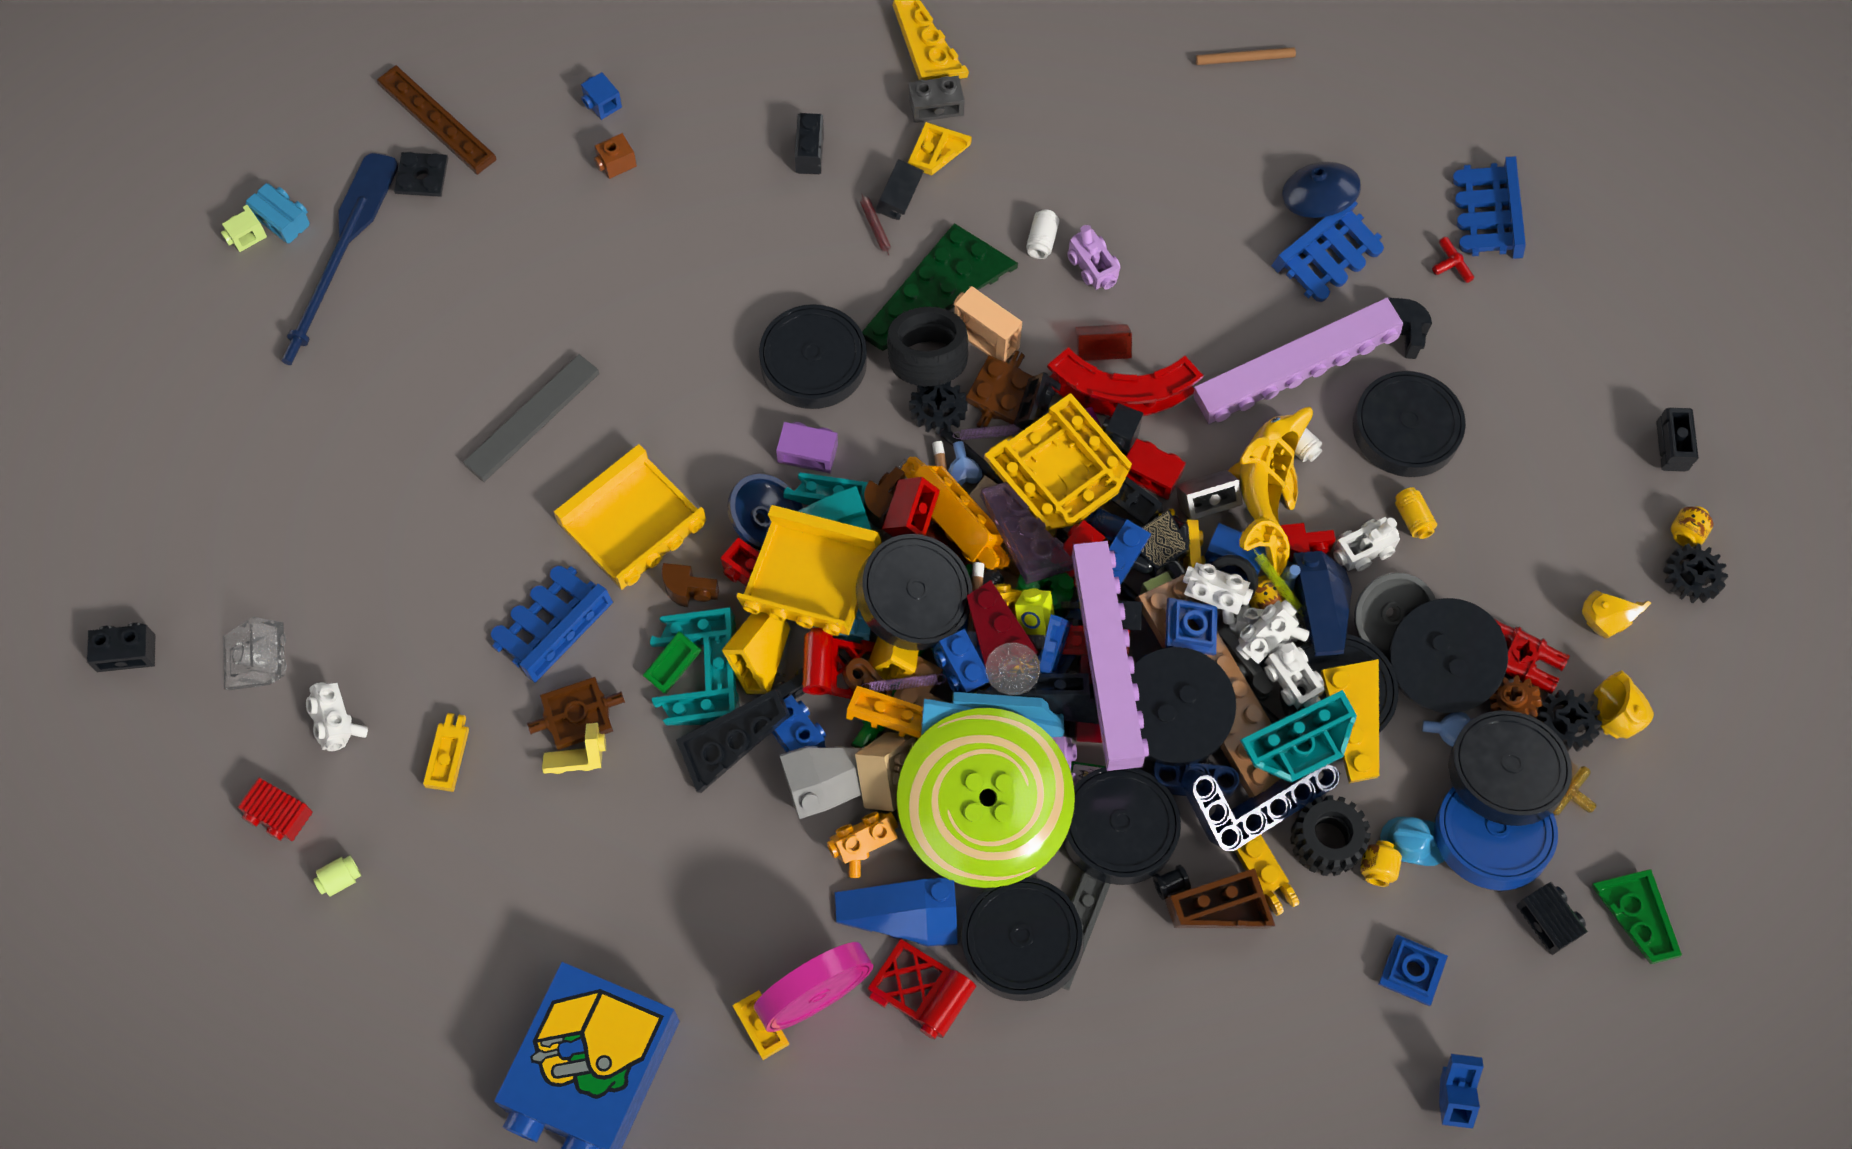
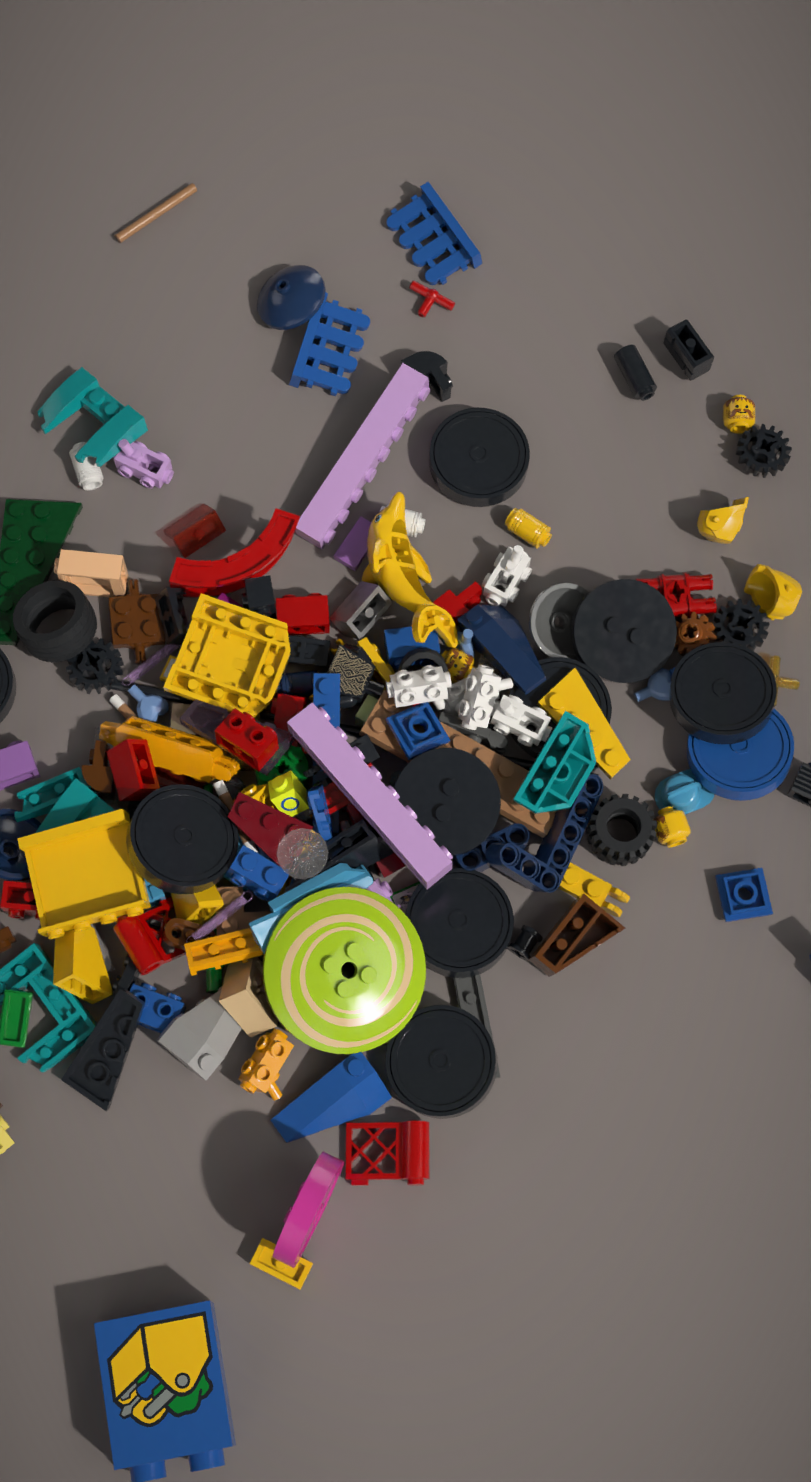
camera: 35 degrees left, 5 degrees up
(1028, 539) = (247, 739): none -> red brick
(1094, 208) = (84, 391): none -> teal wedge
(1237, 438) = (354, 546): none -> medium lavender tile
(1279, 579) = (483, 659): neon yellow piece -> none
(1611, 432) = (635, 372): none -> black brick

